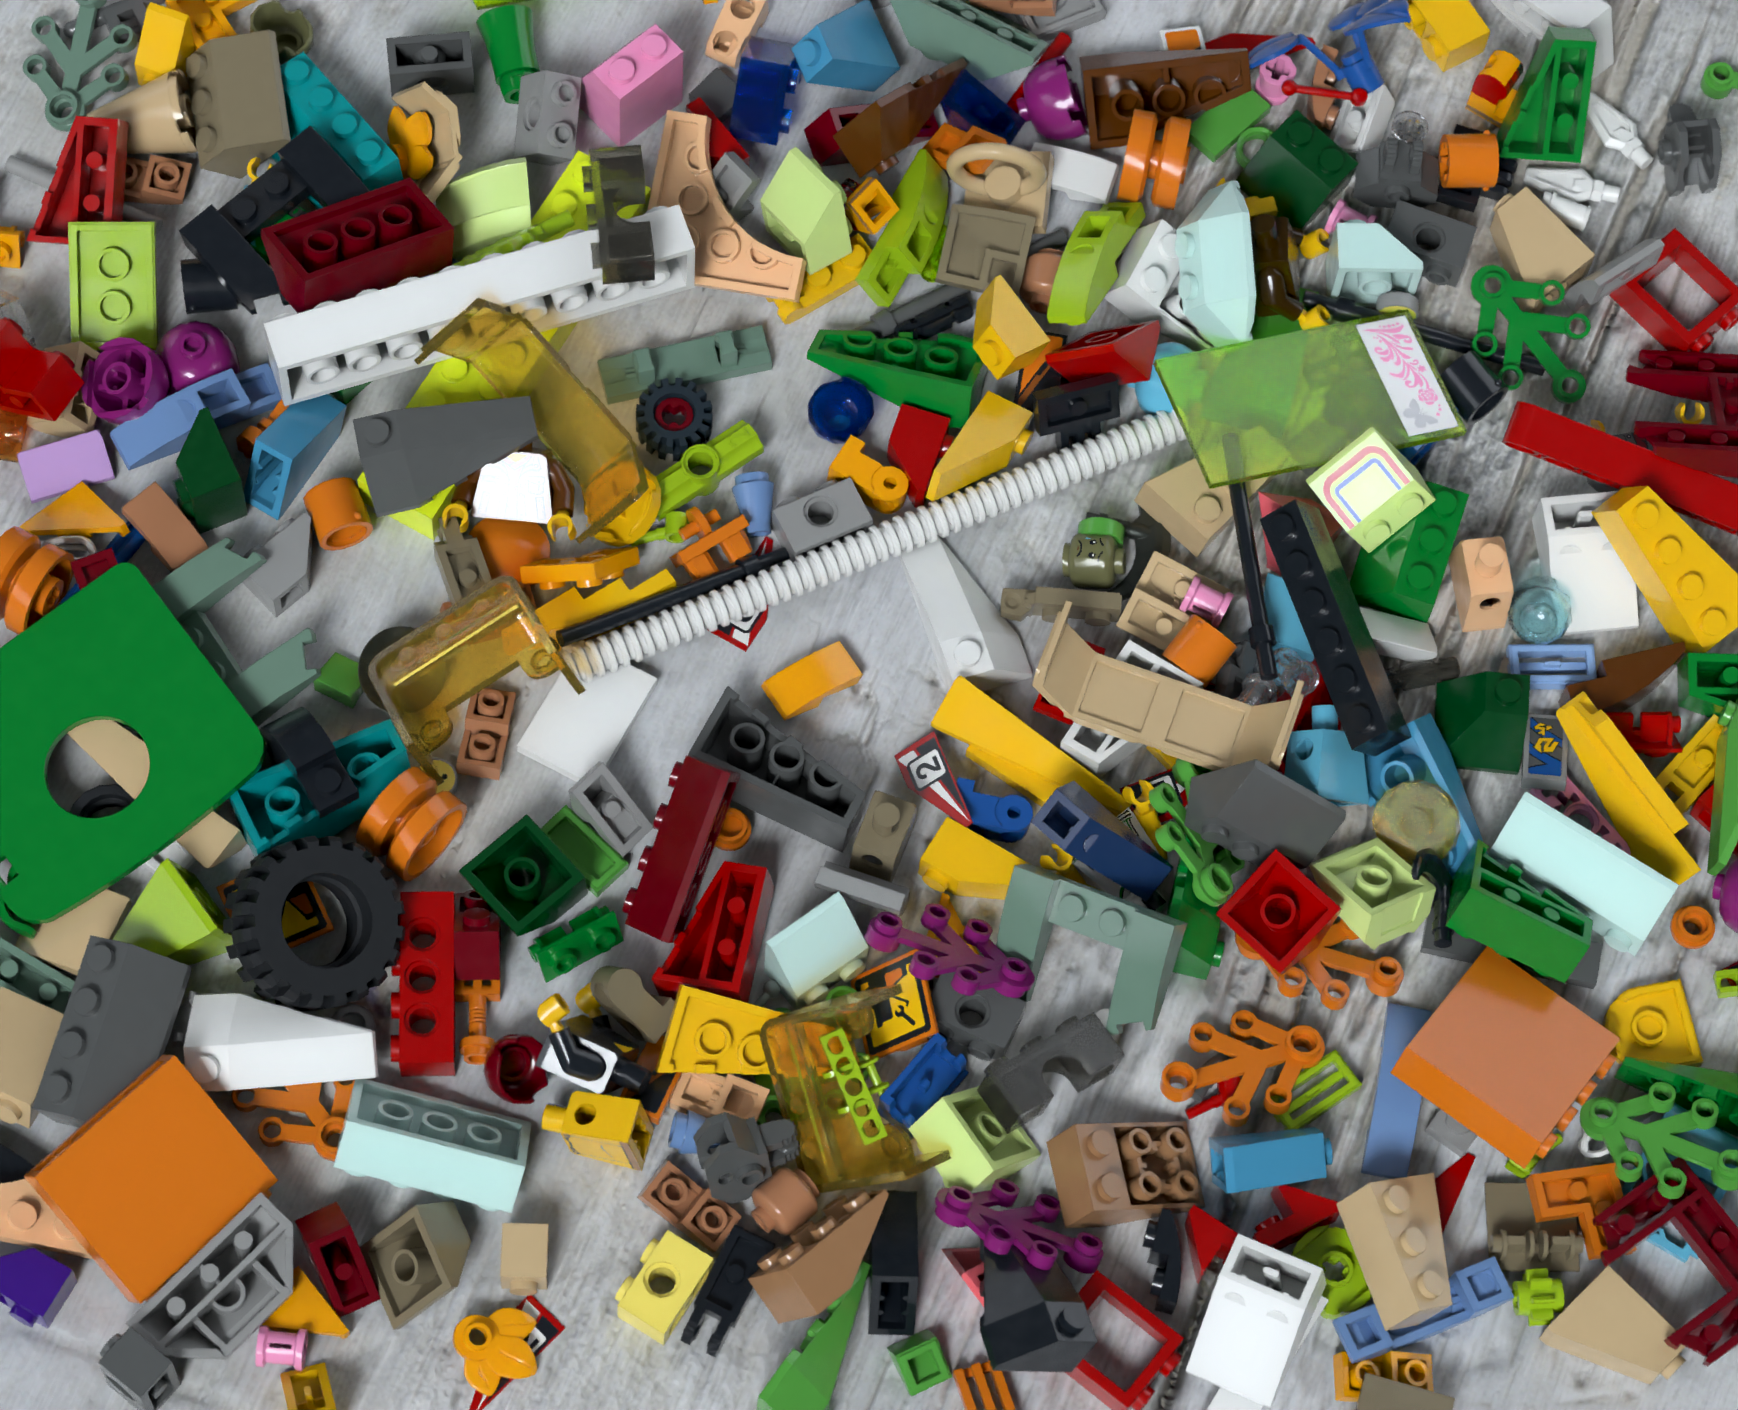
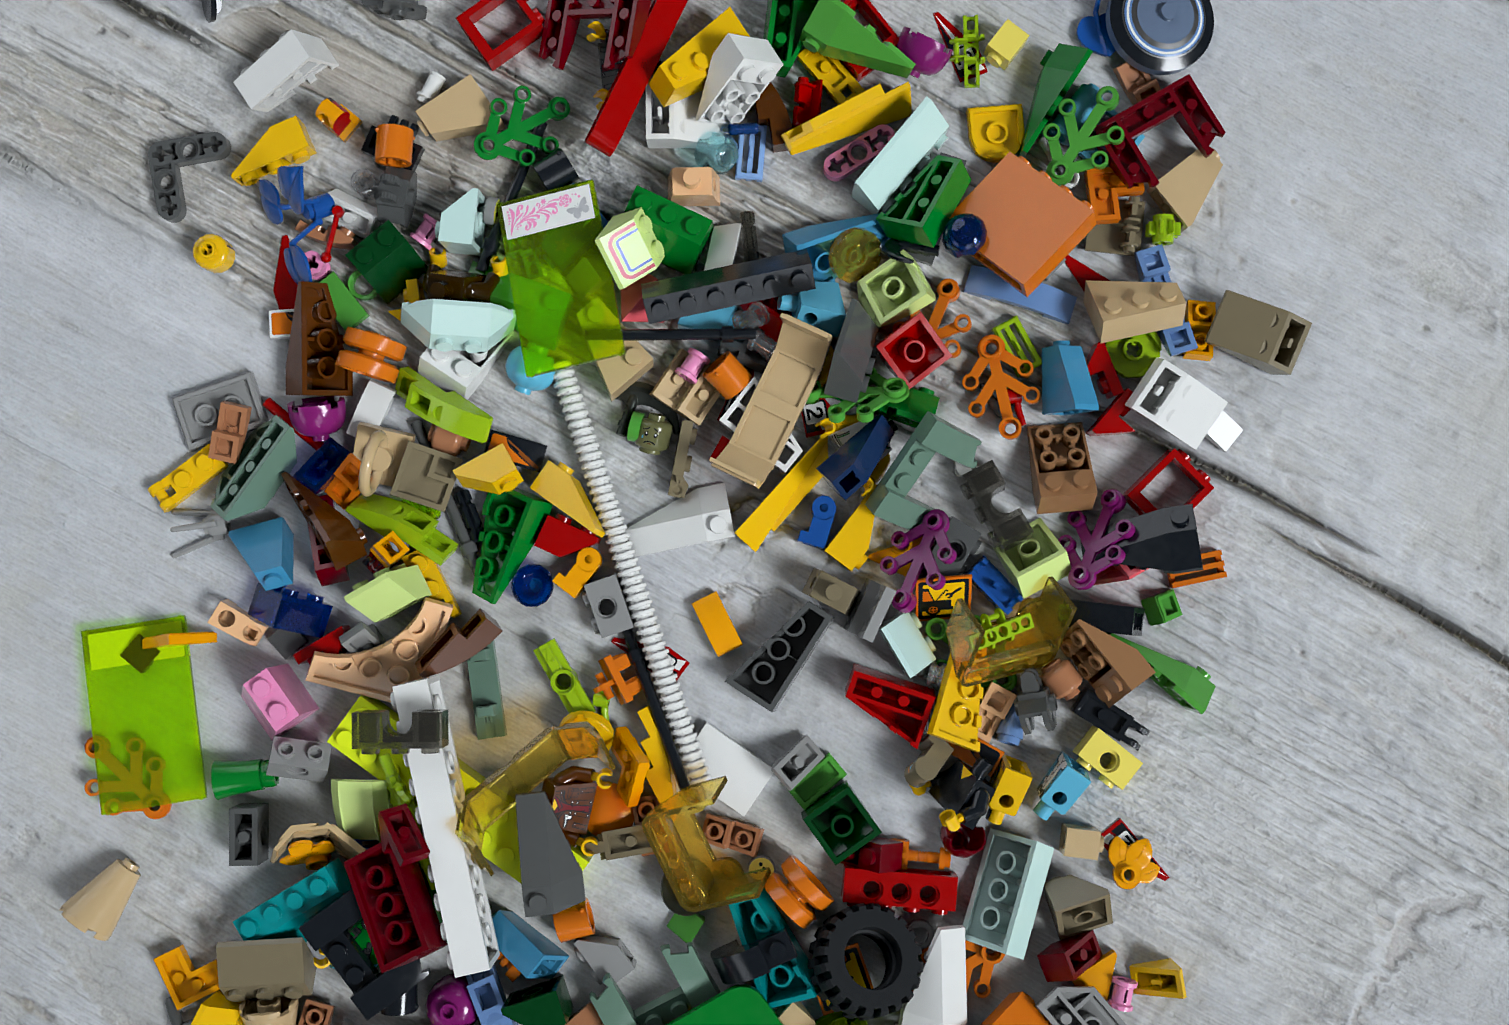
camera: 75 degrees left, 20 degrees up
(291, 29) = (209, 929): olive hair -> none
(465, 236) = (402, 835): none -> dark red slope
(591, 935) = (884, 802): green hinge -> none
(612, 1212) = (1066, 779): none -> medium azure torso
(673, 399) = (511, 690): black bush -> none
(681, 849) = (835, 723): dark red slope -> none
(689, 1207) = (1048, 744): nougat slope -> none
(735, 831) = (812, 686): orange plate -> none
(743, 314) = (458, 644): none -> reddish brown slope
(754, 500) = (590, 647): medium blue cone -> none
(773, 996) = (935, 674): none -> clear bush
(930, 777) = (793, 556): sticker -> none
(1076, 408) = (548, 431): black hinge -> none
(1122, 350) = (510, 404): red slope -> none
(1164, 1252) = (1111, 452): black slope -> none
(1446, 235) = (446, 168): dark grey brick -> none
(1473, 967) = (964, 235): none -> clear blue hair
(1484, 720) = (786, 201): dark green slope -> none
(1544, 754) = (813, 167): tile -> none
(1552, 100) = (354, 81): green wedge -> none
(1571, 184) = (410, 82): white piece -> none
(1584, 643) = (742, 129): none -> blue piece
(1614, 274) = (484, 63): light grey slope -> none
(1617, 131) = (372, 45): white piece -> none
(1653, 610) = (737, 78): none -> white slope
(1697, 916) = (937, 87): orange plate -> none

